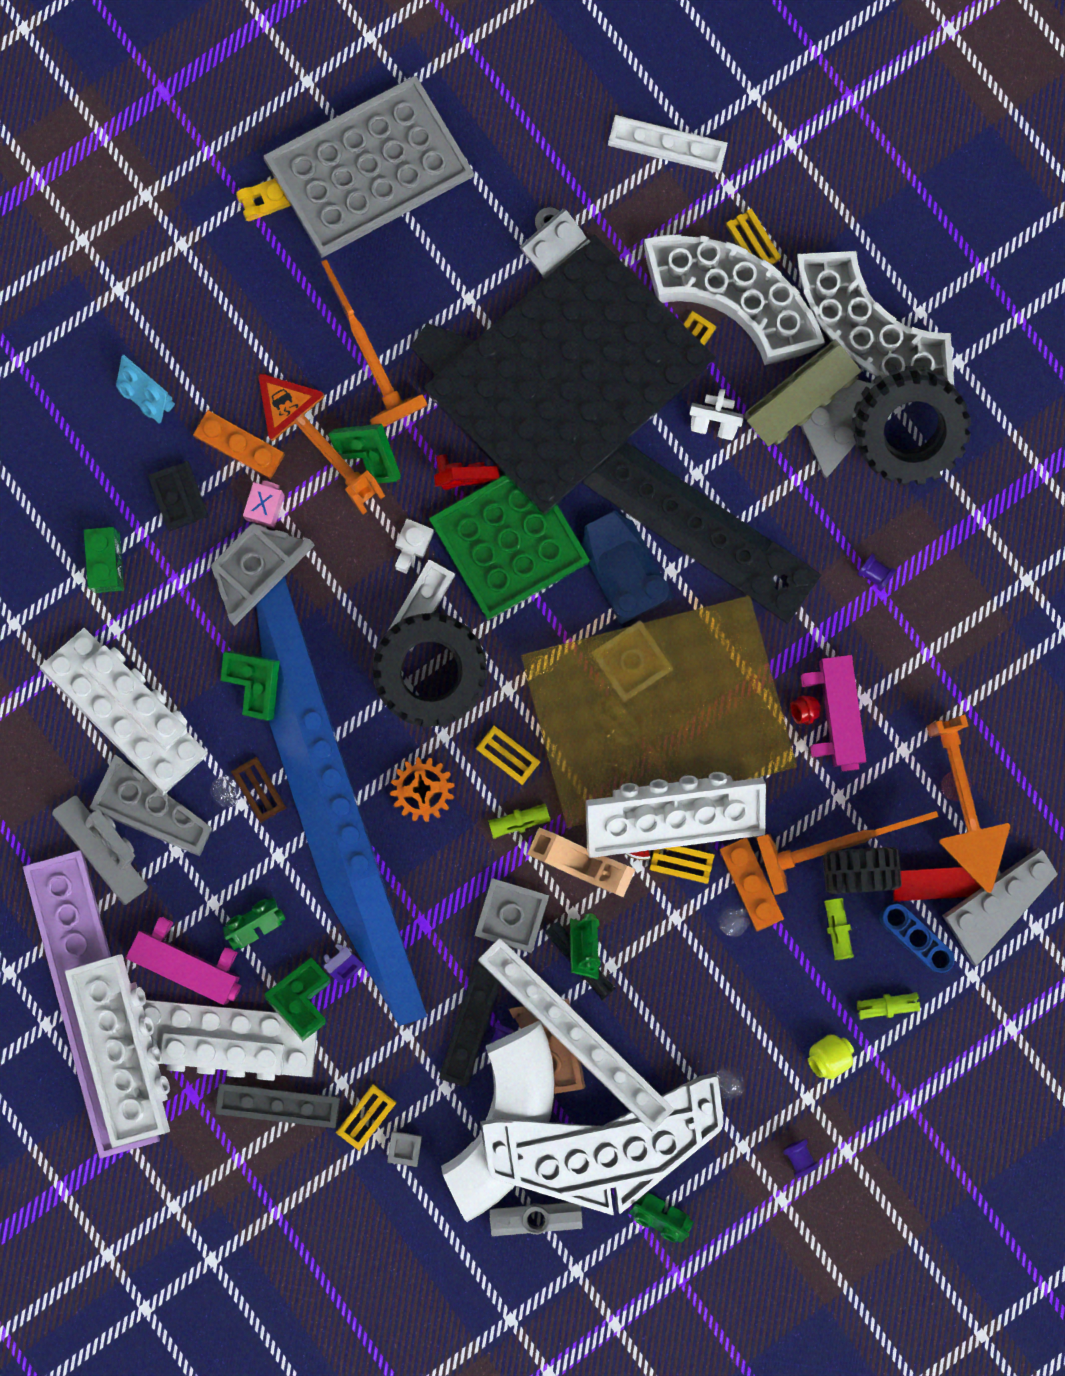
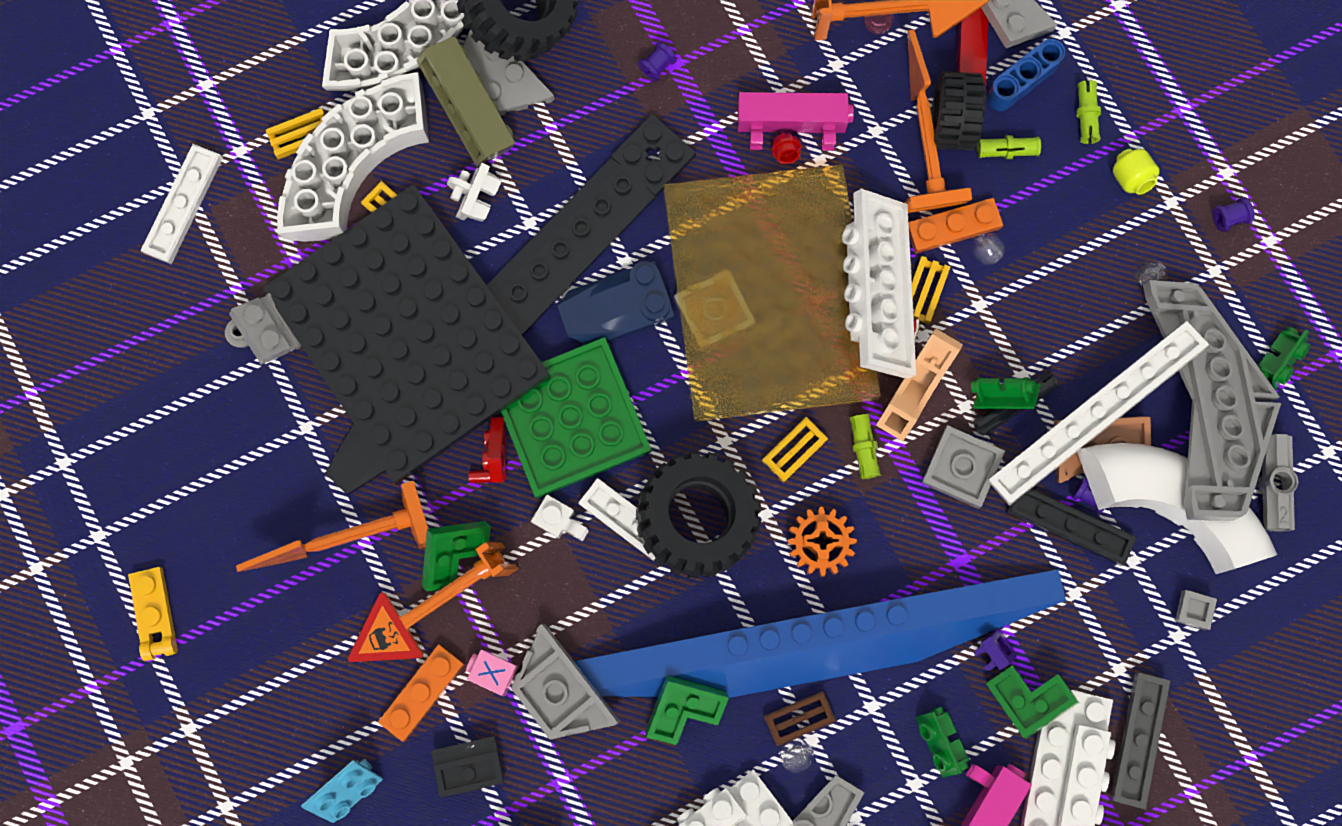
camera: 85 degrees left, 5 degrees down
(368, 166) = (142, 512): light grey plate -> none
(382, 1096) = (1178, 667): yellow tile -> none

